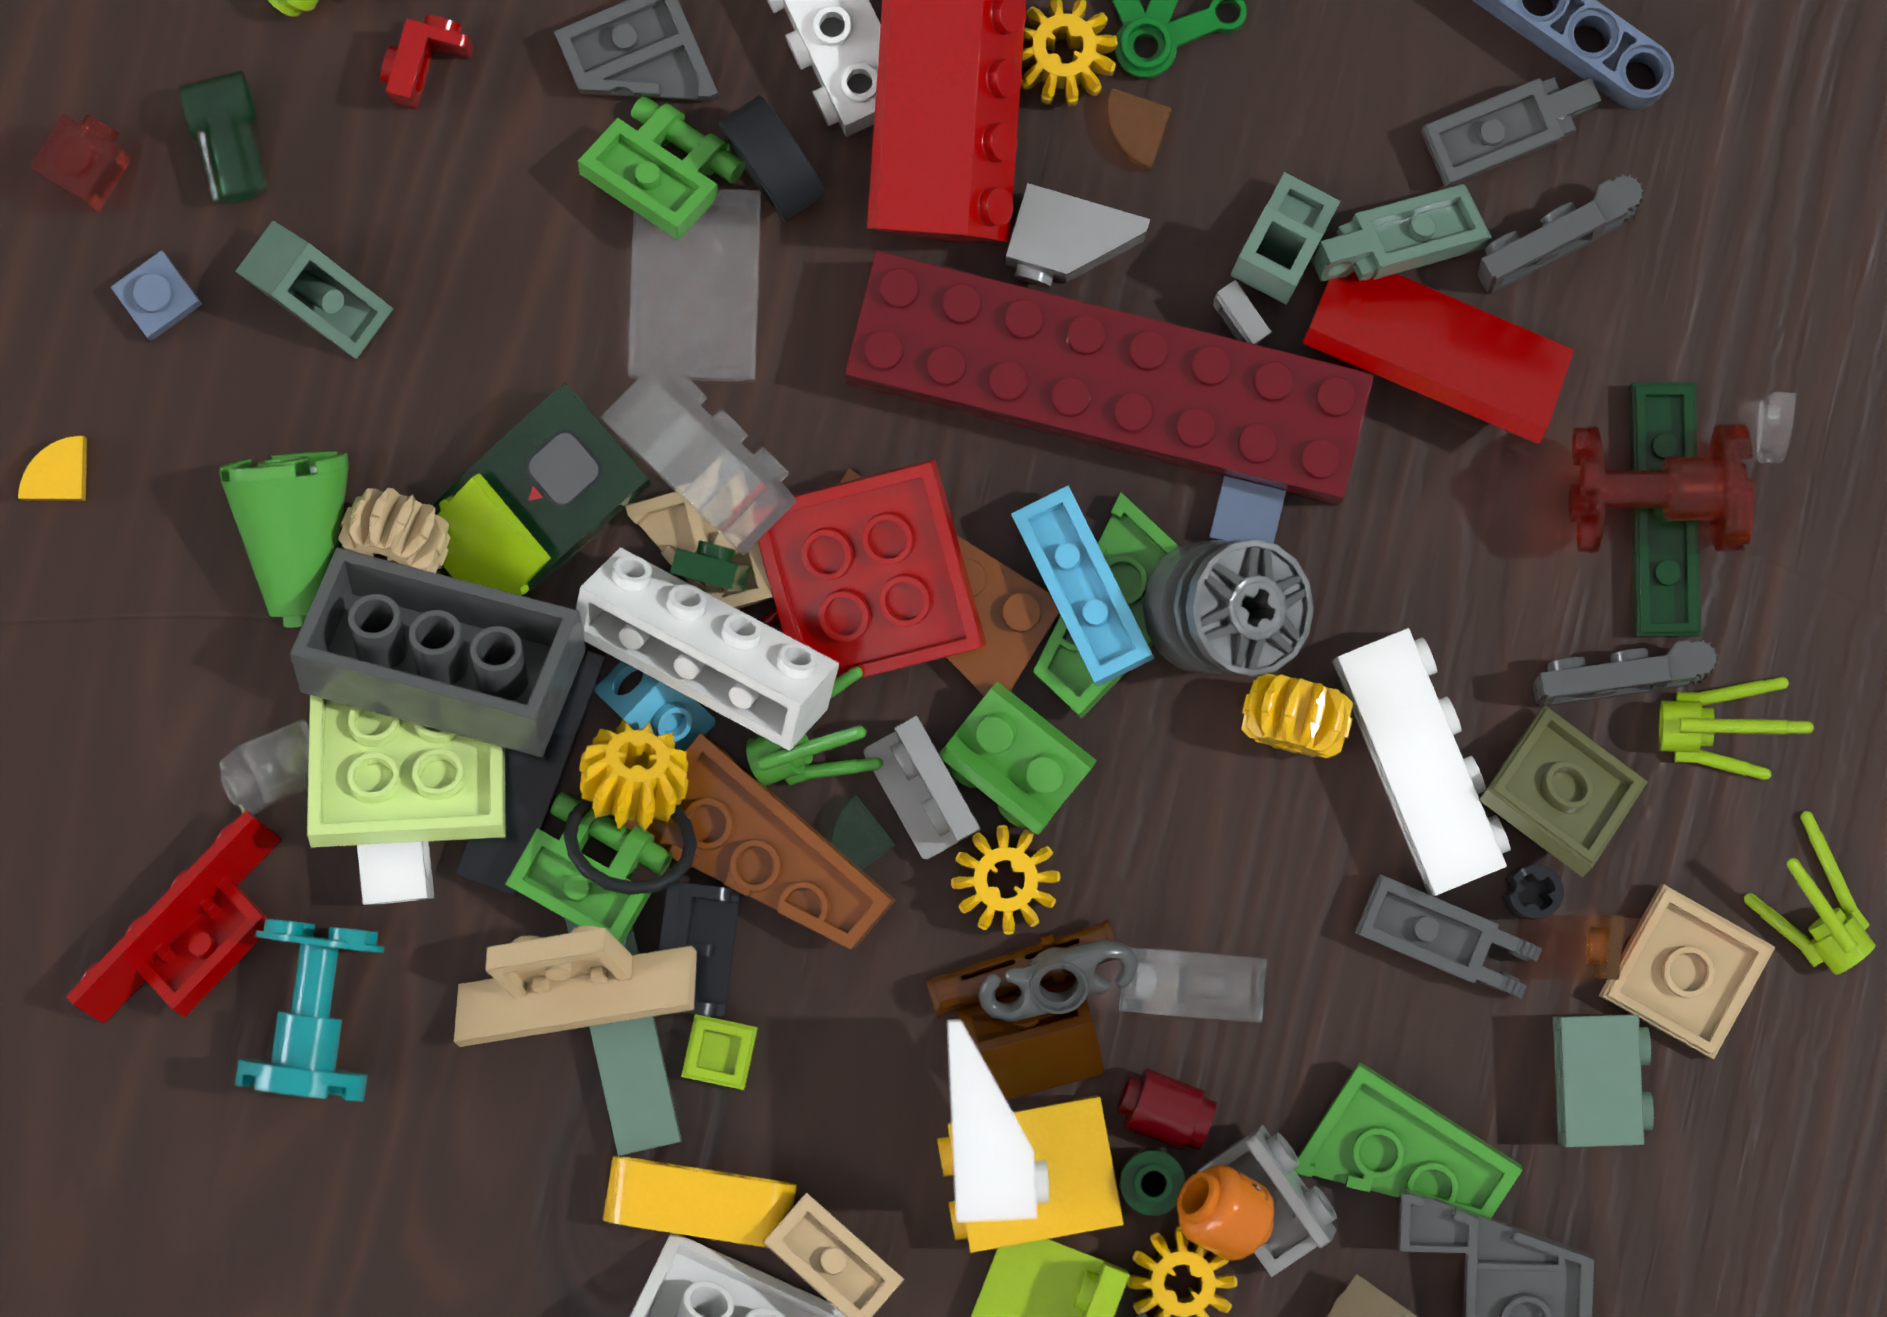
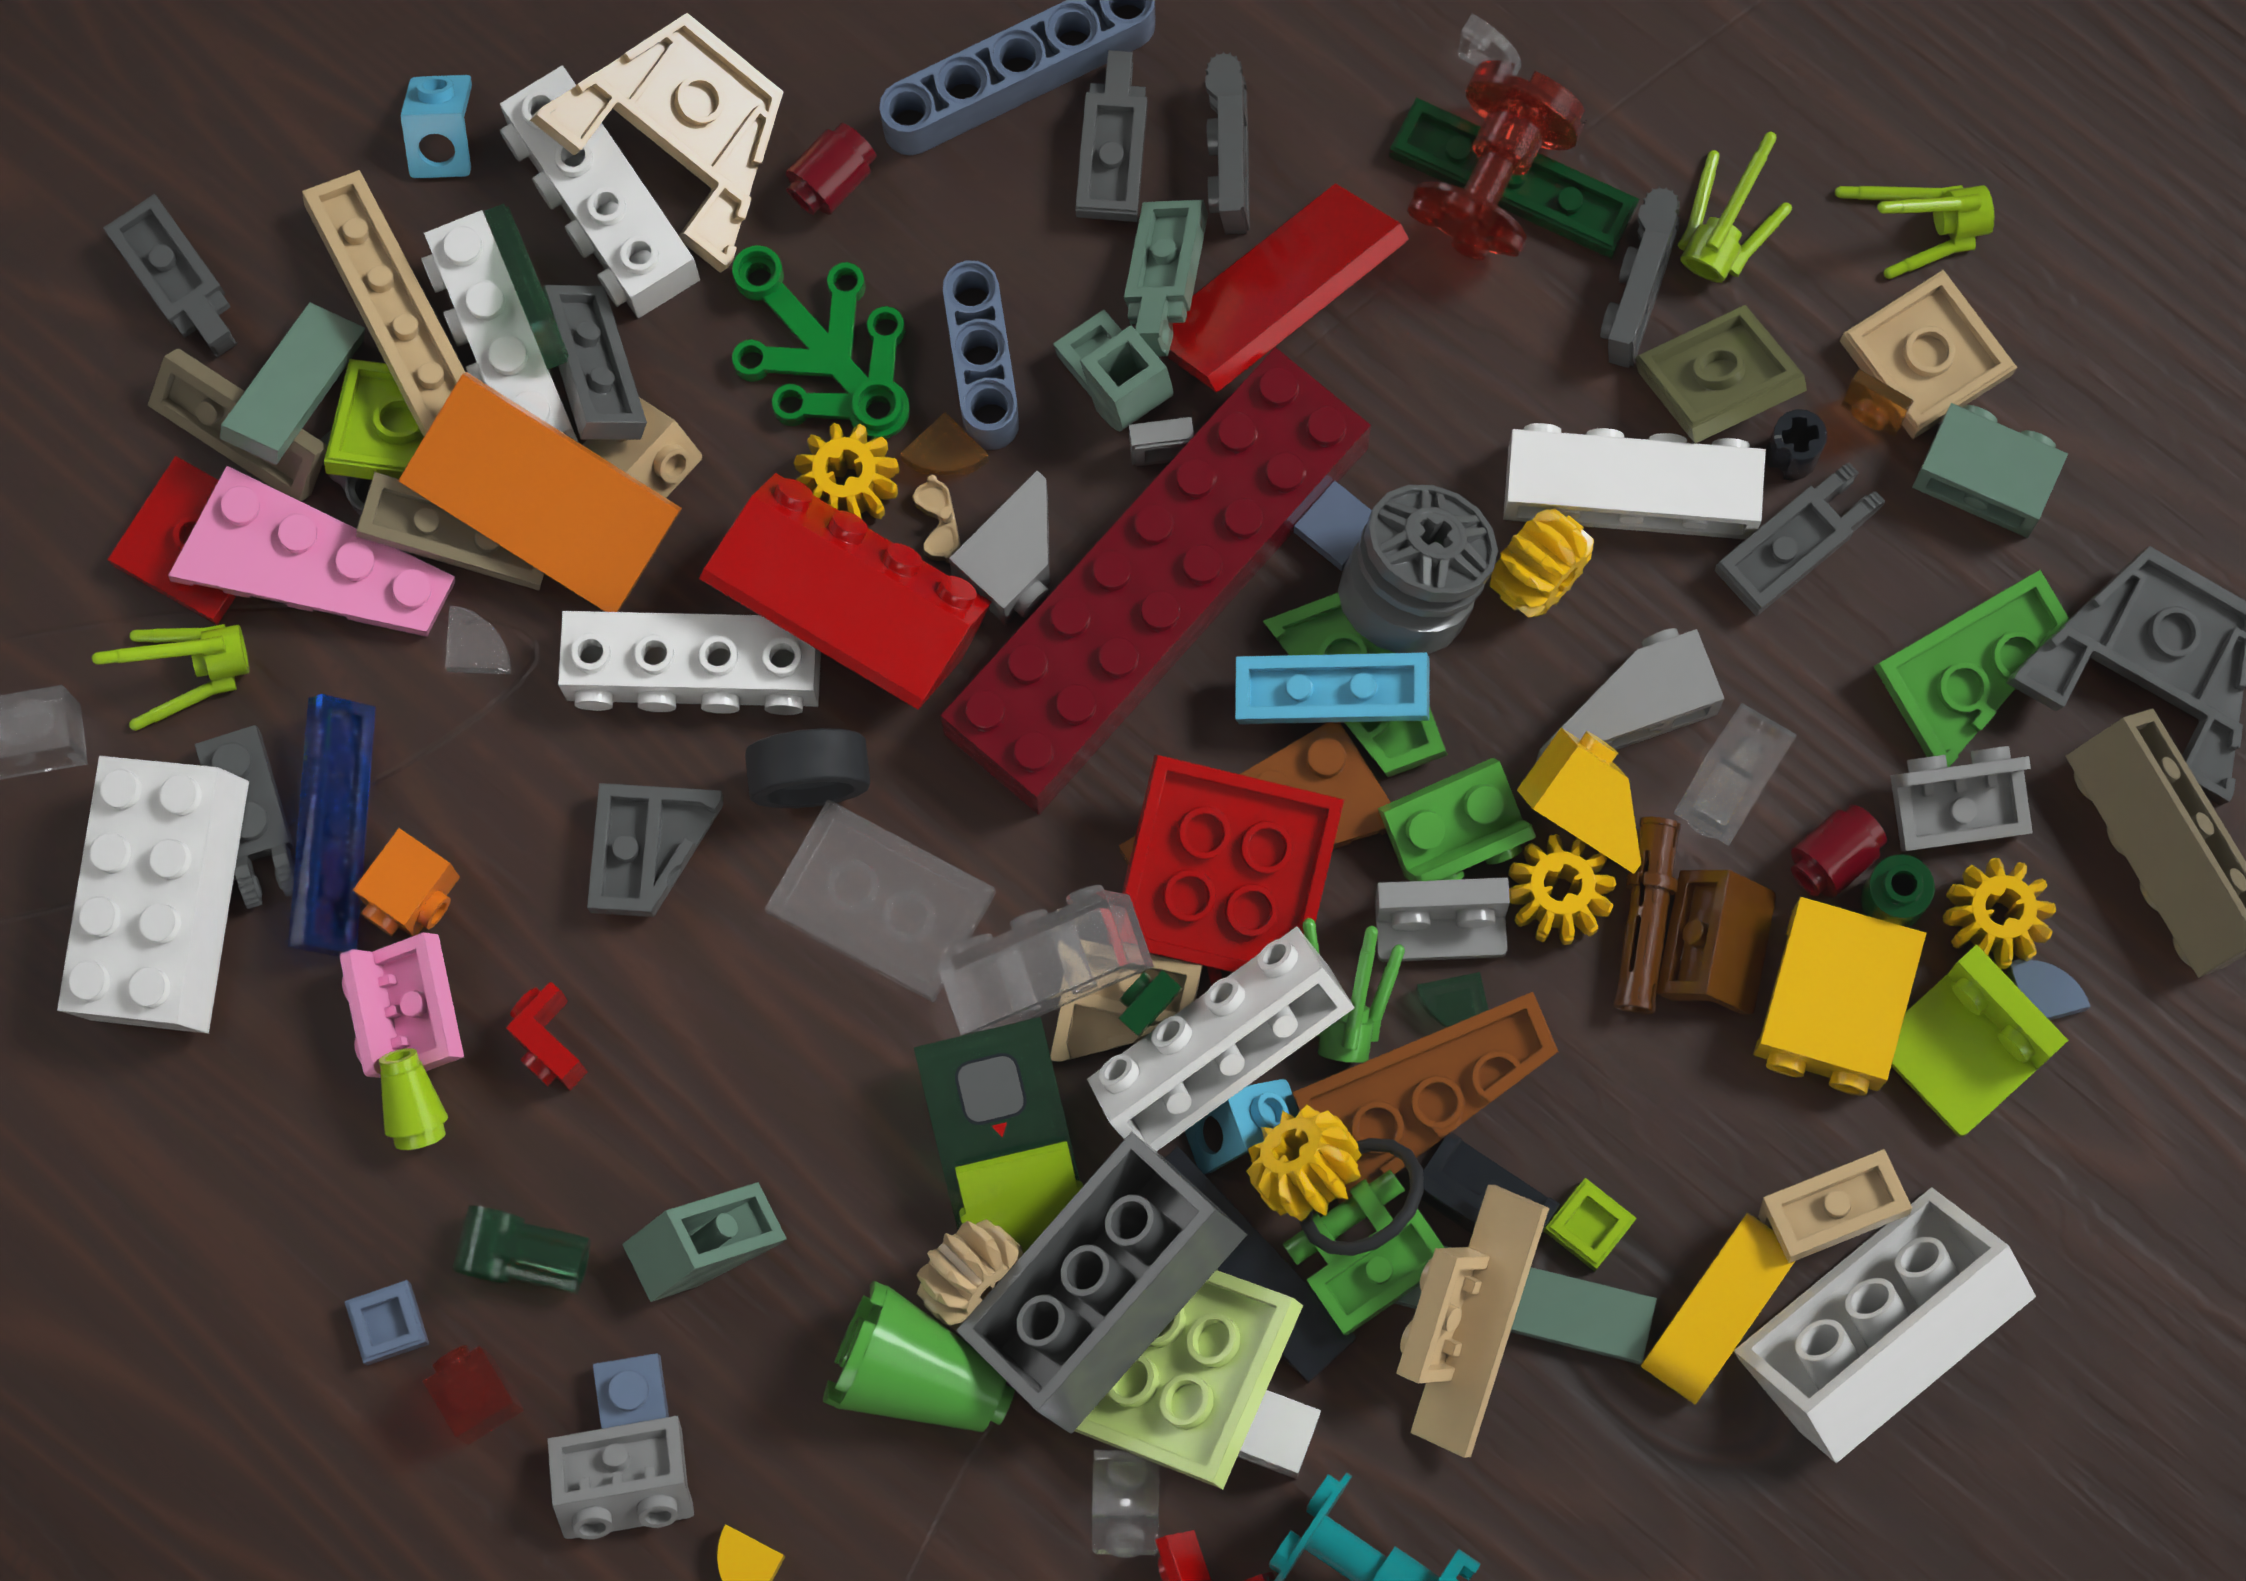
camera: 60 degrees left, 10 degrees down
(76, 324) = (619, 1478): none -> light grey bracket
(111, 54) = (387, 1322): none -> sand blue tile
(651, 179) = (769, 884): bright green plate -> none
(991, 1153) = (1802, 1002): white slope -> none
(1037, 1001) = (1685, 913): dark grey piece -> none
(1087, 142) = (935, 501): none -> tan piece
(1092, 859) = (1585, 795): none -> yellow slope
(1223, 869) = (1651, 693): none -> light grey slope
(1225, 1212) = (1960, 834): orange head -> none
(1260, 89) = (973, 328): none -> sand blue beam

